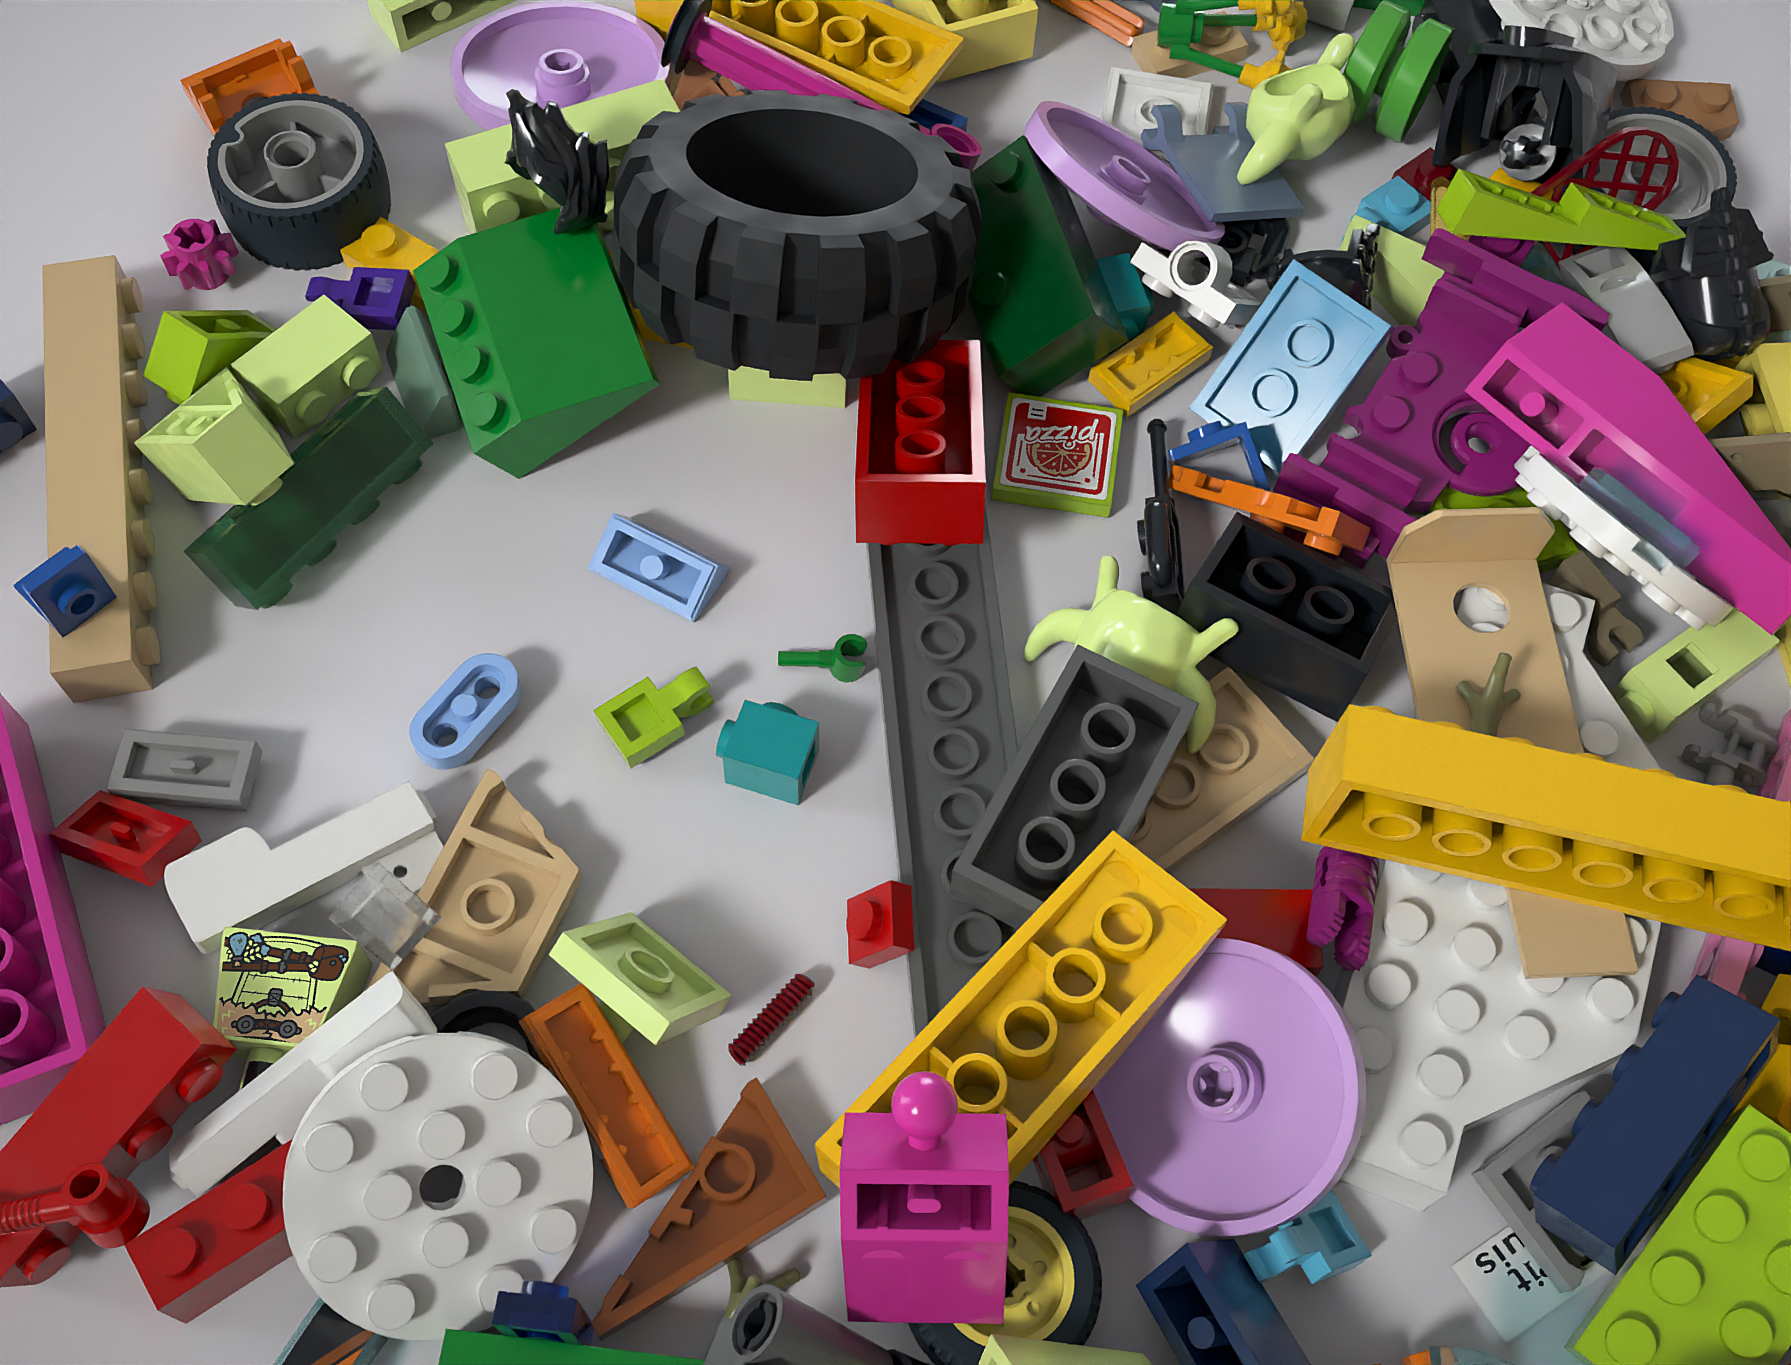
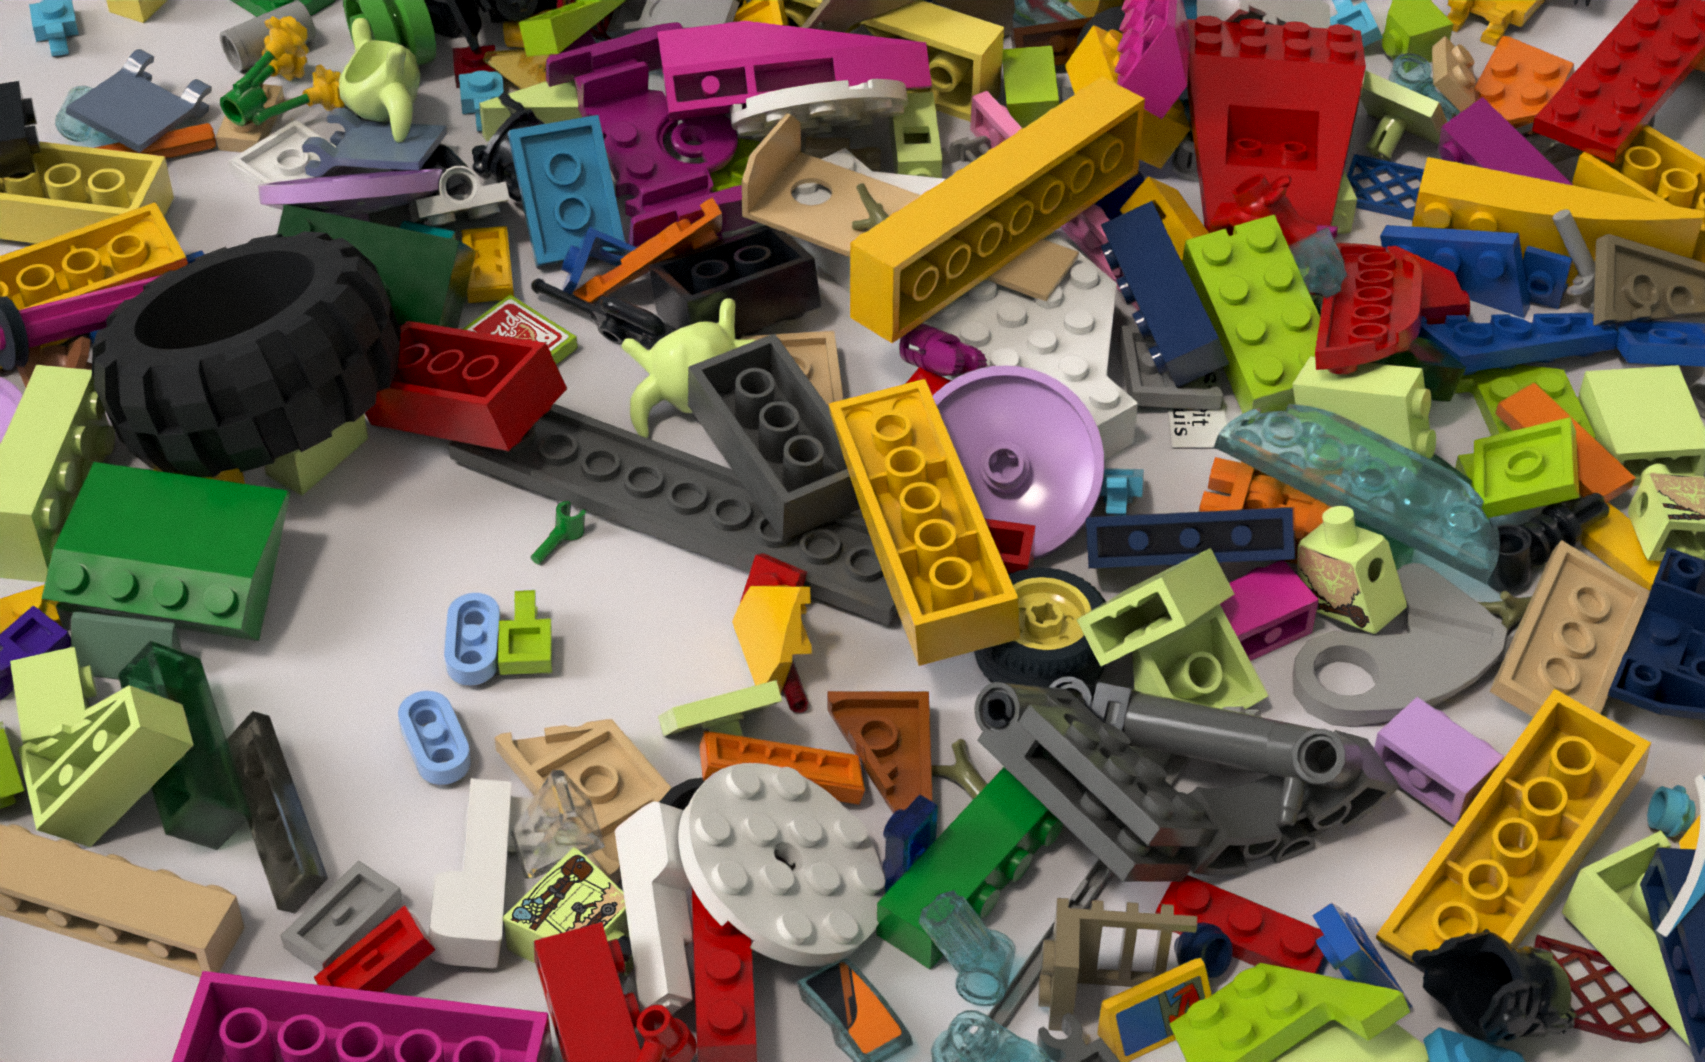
camera: 55 degrees left, 15 degrees down
(66, 589) = (159, 896): blue bracket -> none
(269, 644) = (277, 815): none -> clear smoke plate
(559, 162) = (79, 434): black hair -> none
(617, 663) = (470, 647): none -> light blue plate
(657, 567) = (407, 589): light blue slope -> none
(769, 750) = (608, 586): teal brick -> none
(802, 967) = (772, 630): none -> yellow slope
(924, 1209) = (997, 583): dark pink slope -> none
(1640, 517) = (854, 75): clear light blue tile -> none

